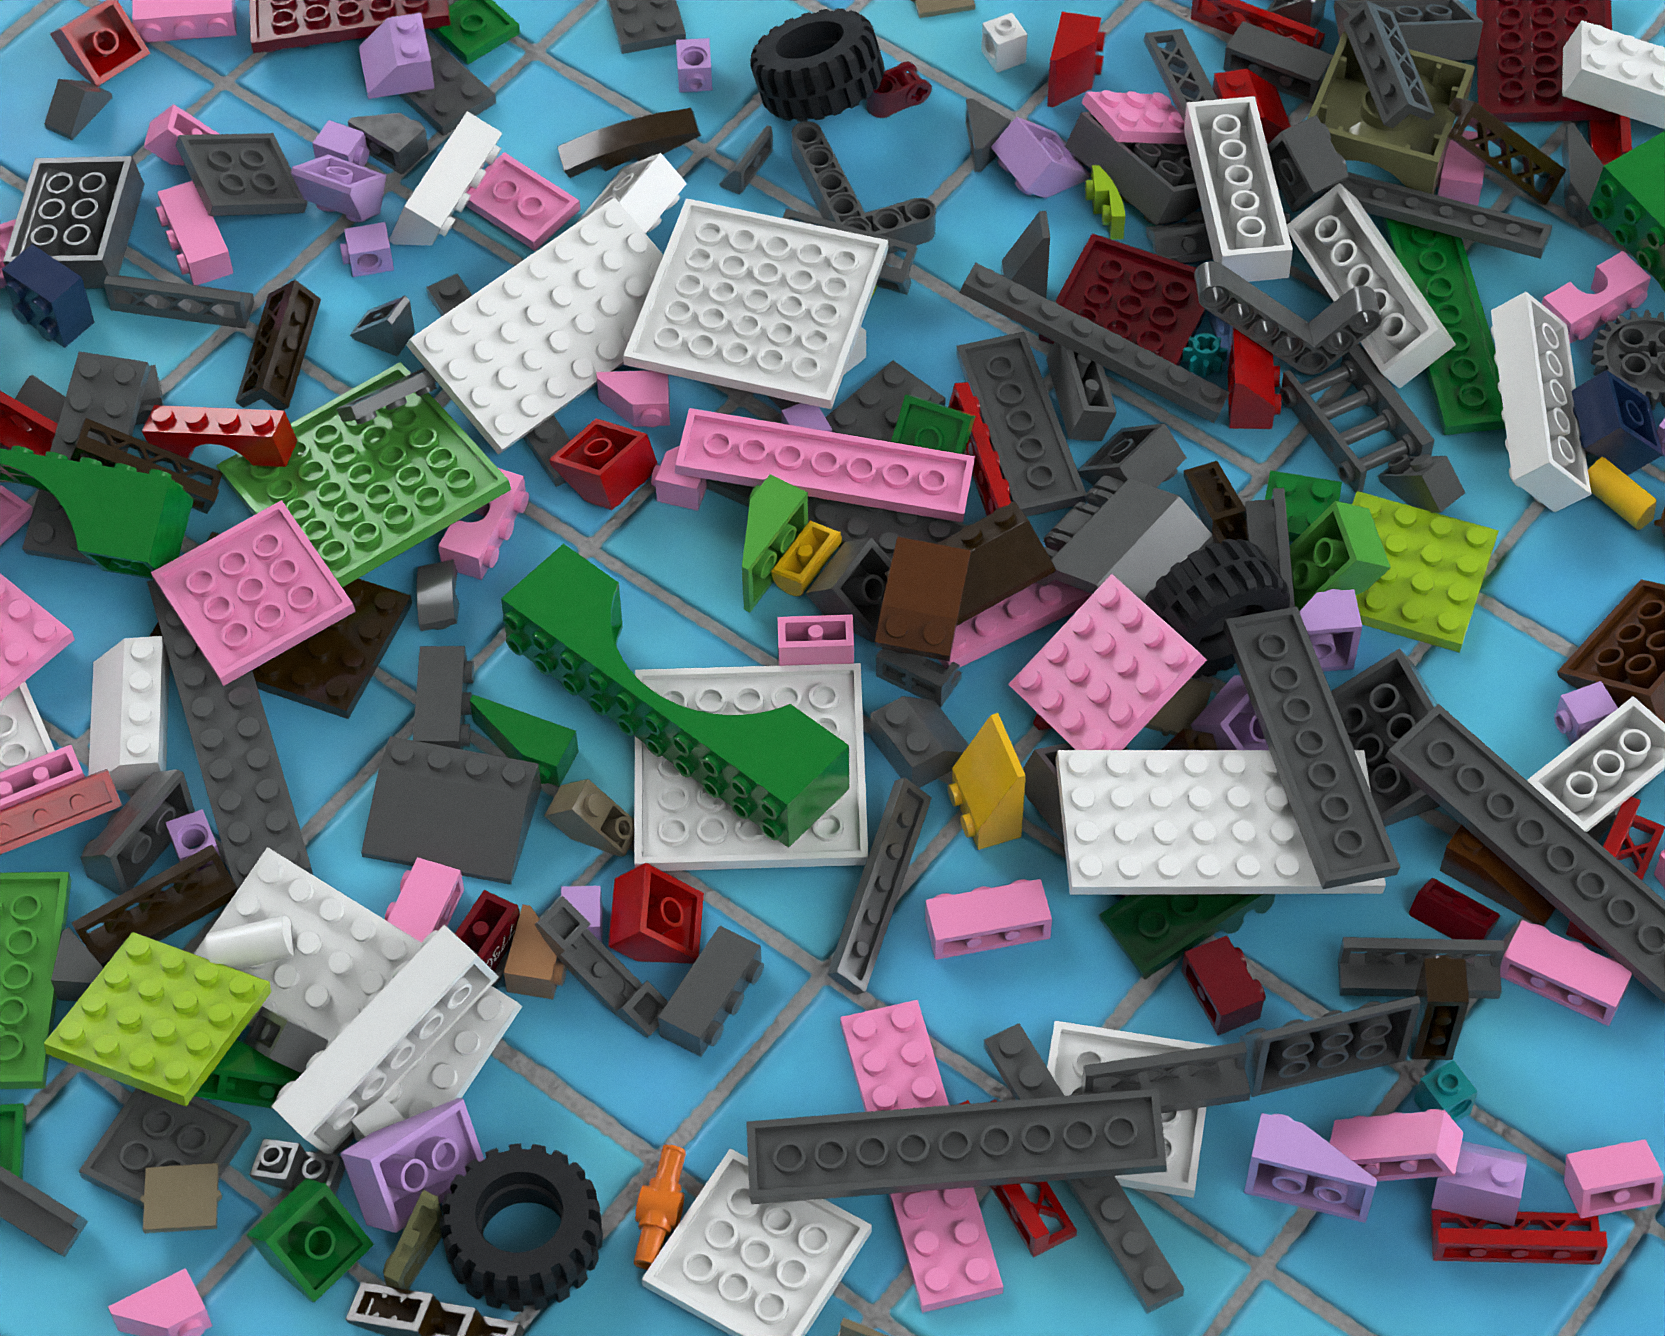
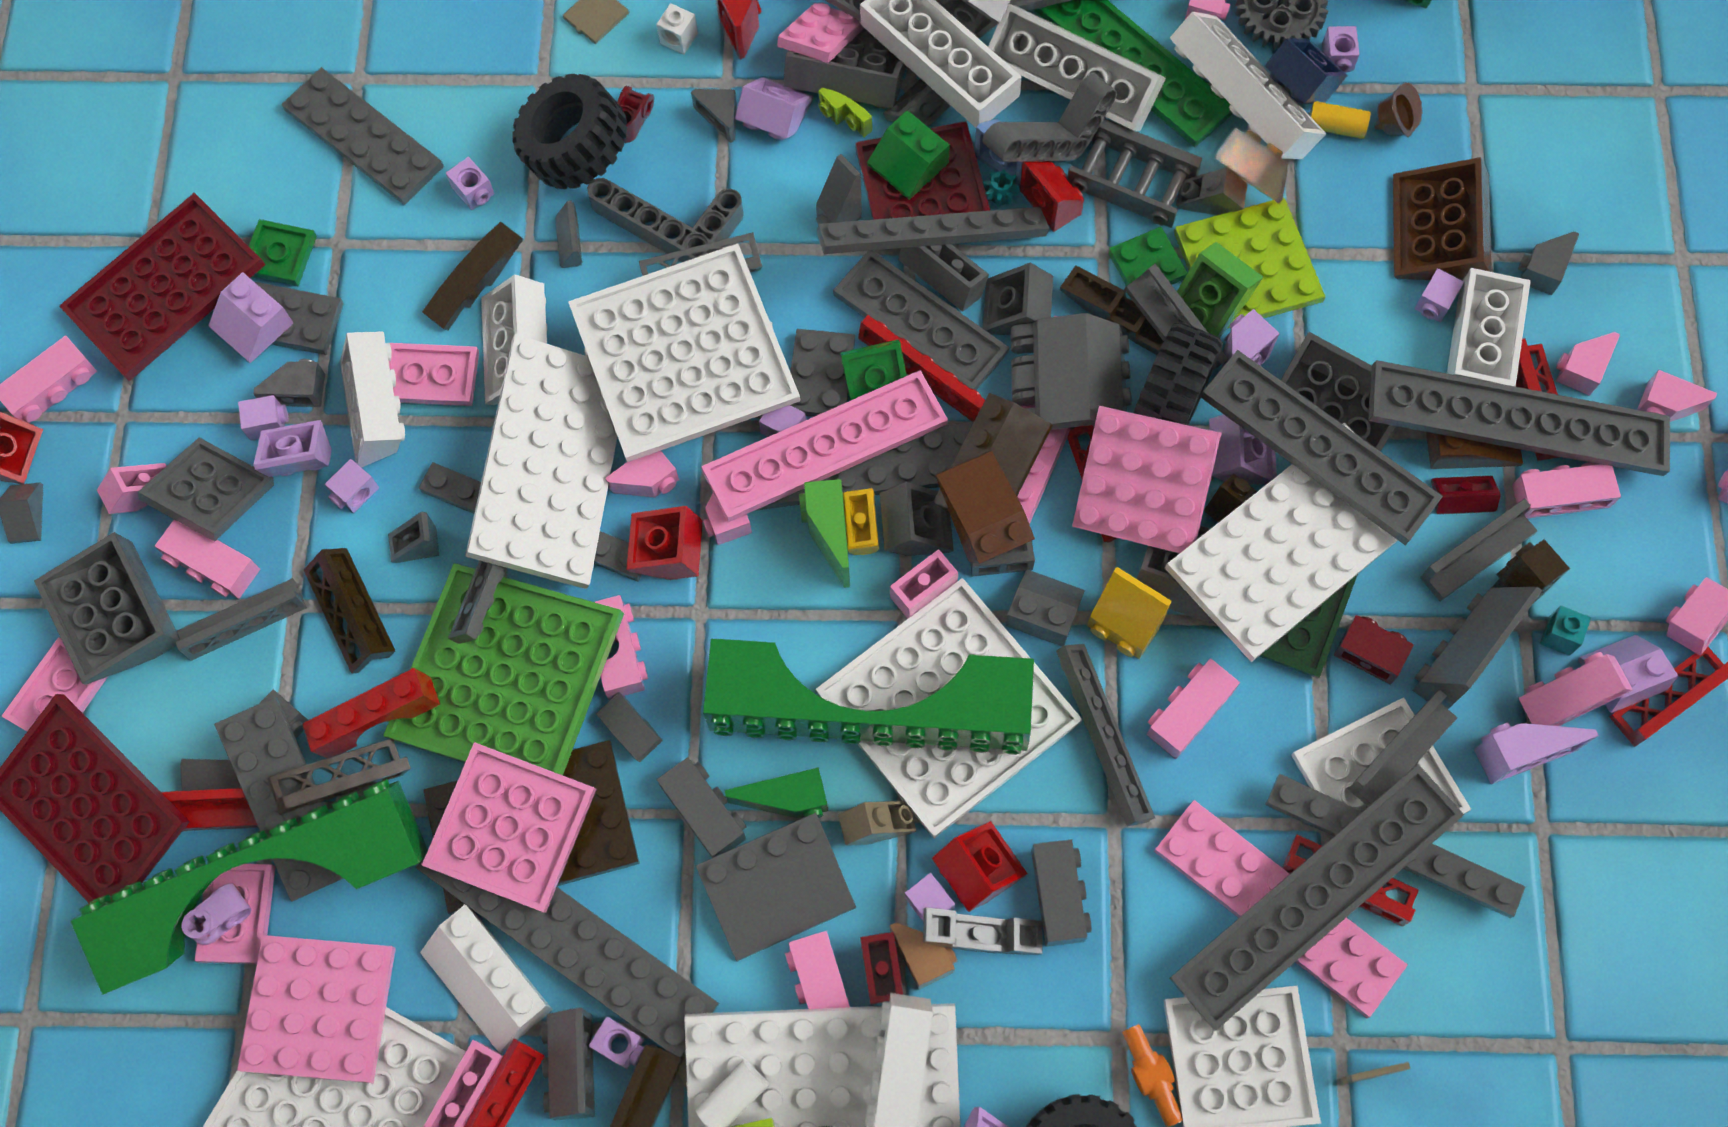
camera: 35 degrees left, 15 degrees up
(47, 296) = (141, 688): dark blue brick -> none
(1131, 268) = (909, 155): none -> green slope
(1477, 468) = (1255, 163): none -> clear orange slope

